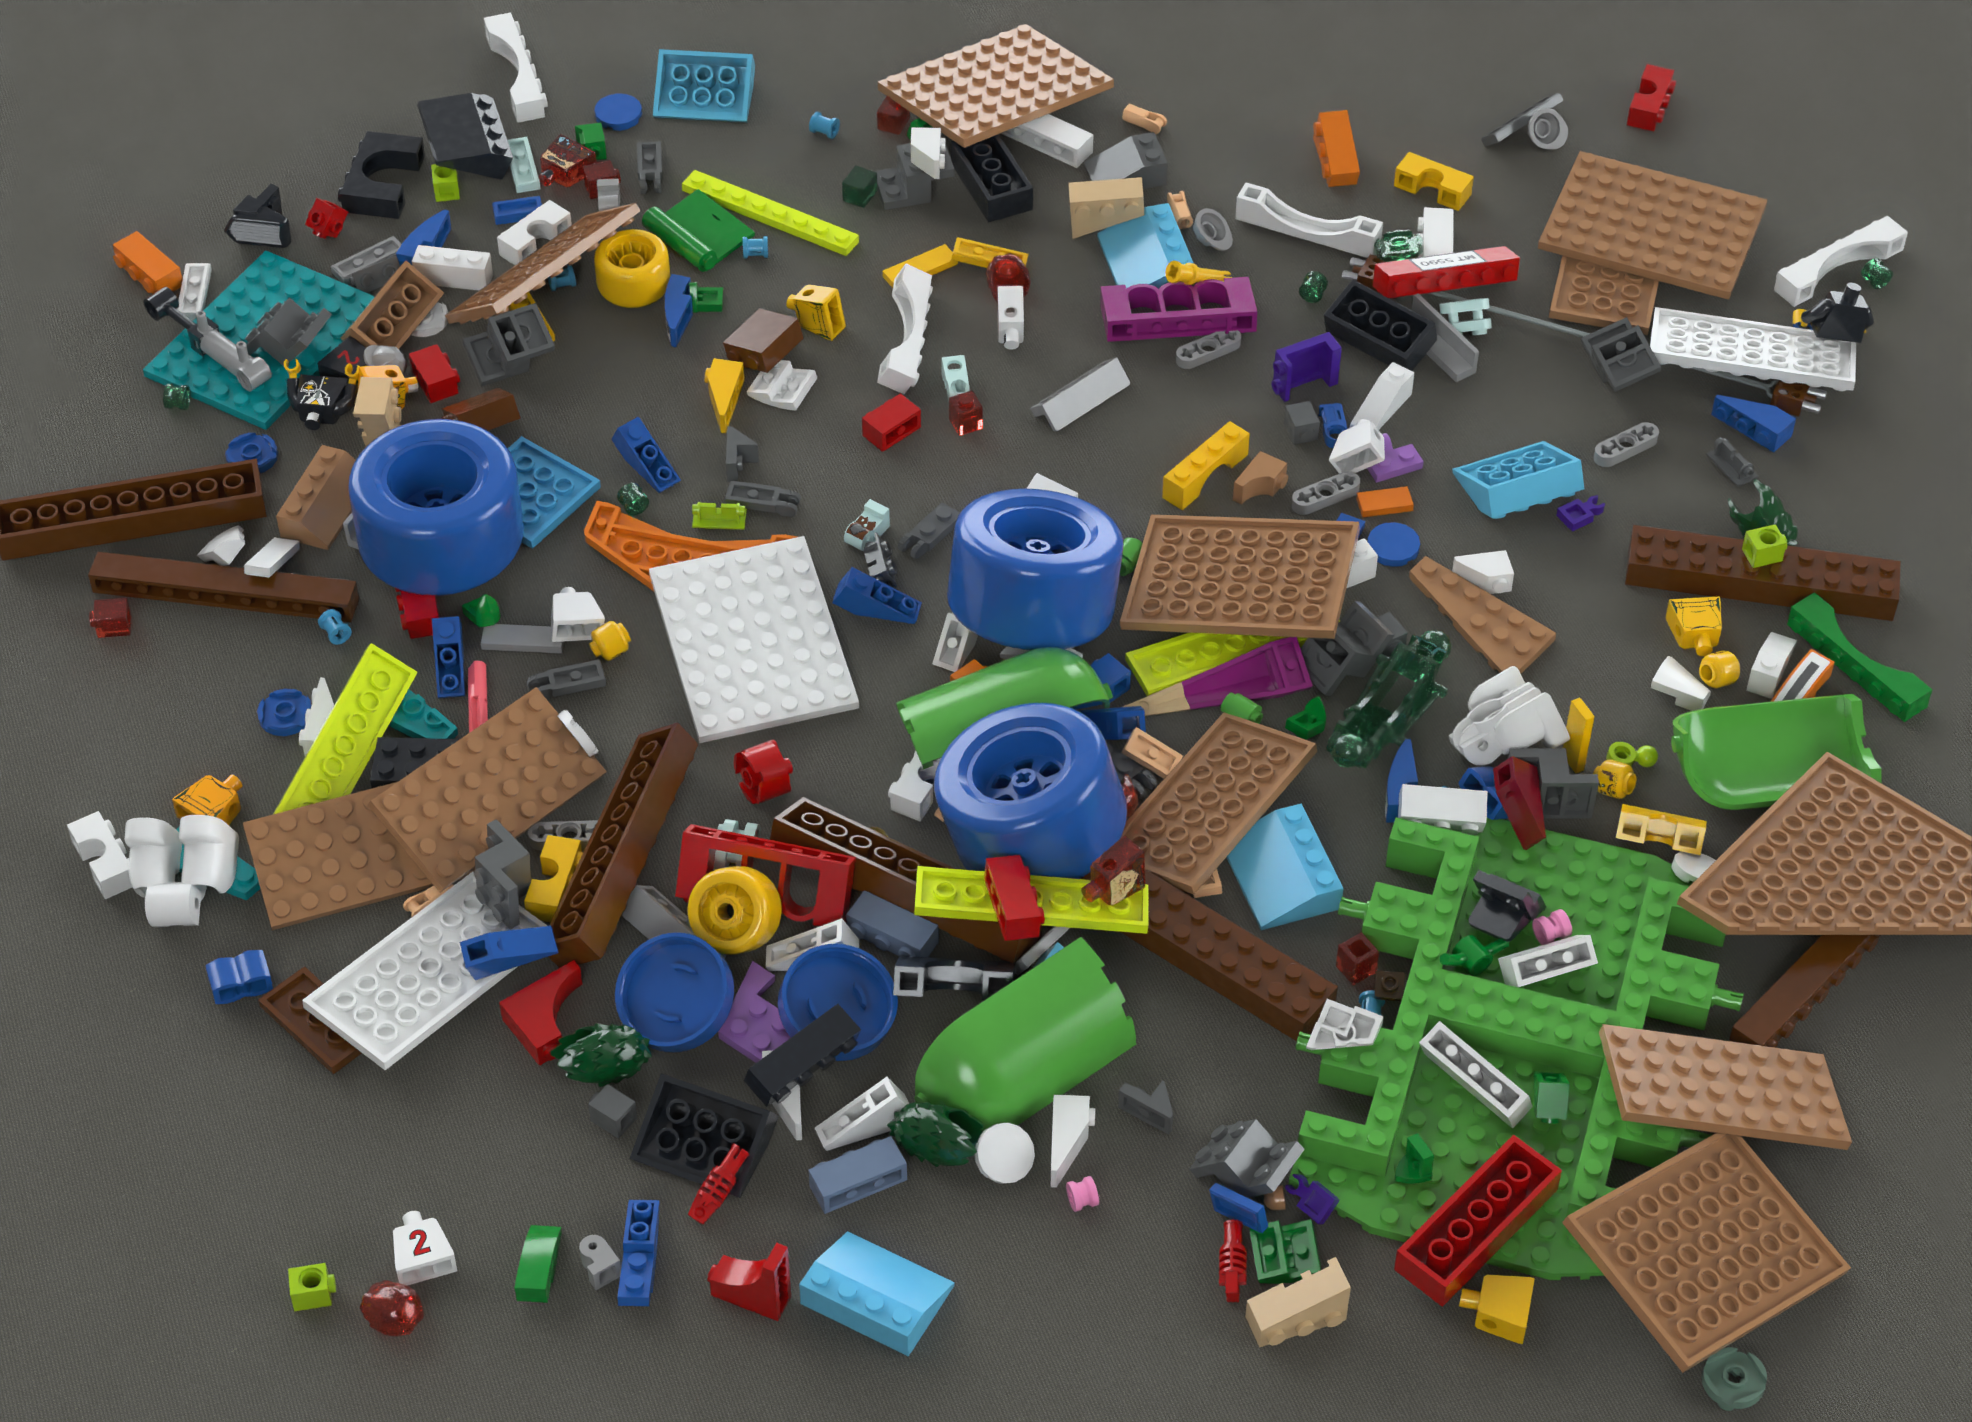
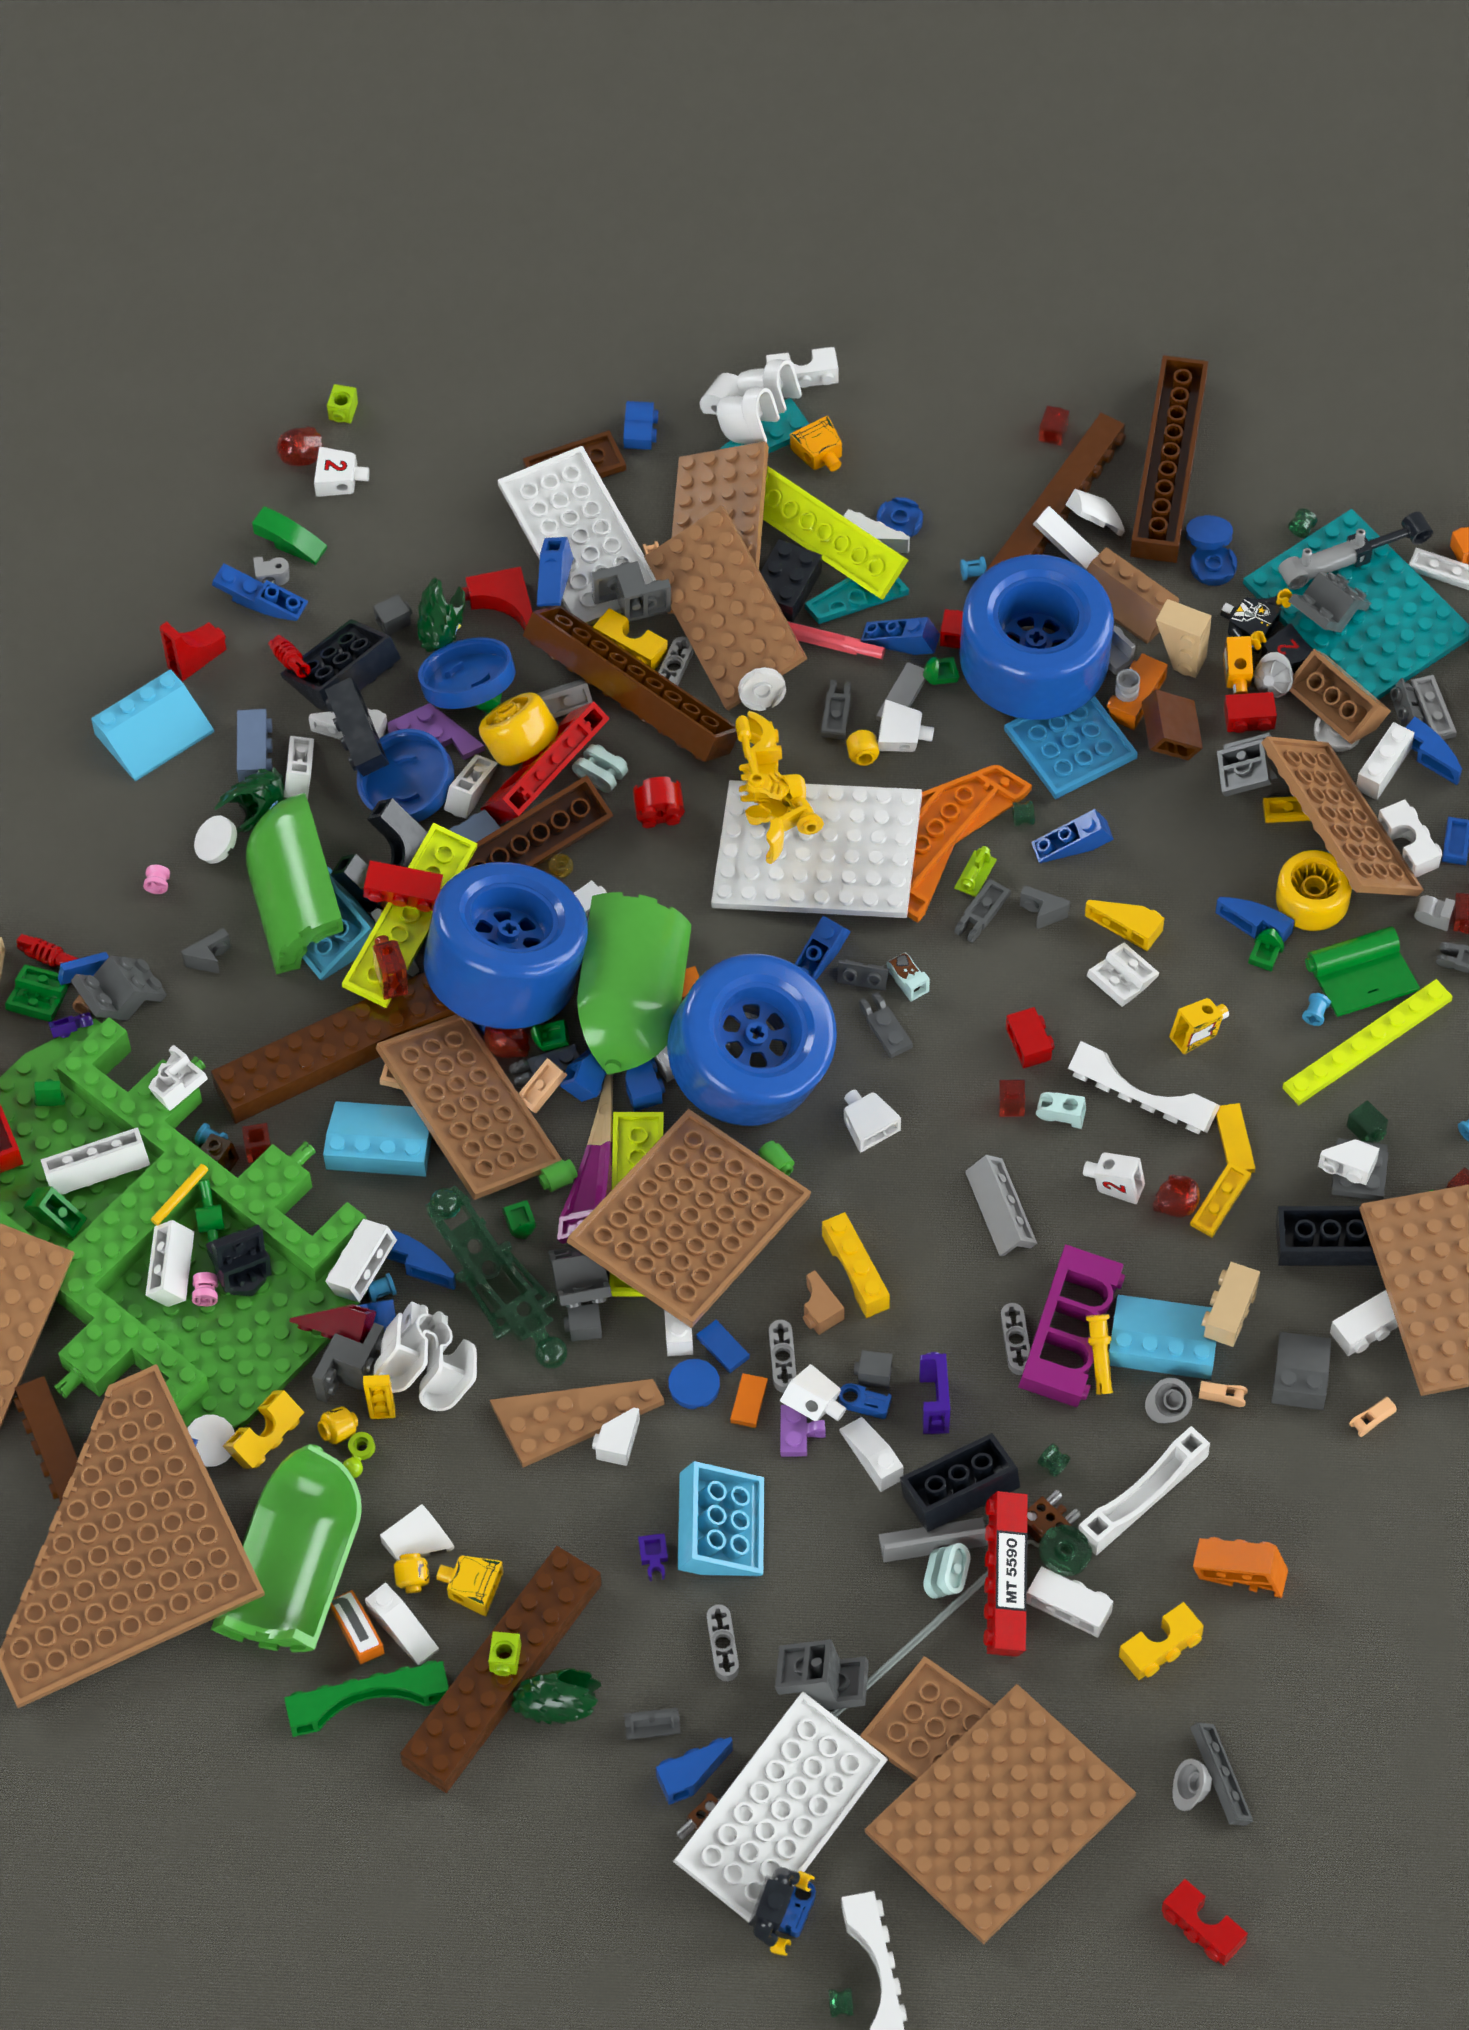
camera: 115 degrees right, 10 degrees up
(215, 452) = (1209, 532): none -> blue tile
(719, 669) = (779, 796): none -> yellow piece
(763, 340) = (1176, 968): brick -> none
(1069, 1132) = (218, 892): white slope -> none
(1474, 971) = (179, 1194): none -> yellow bar

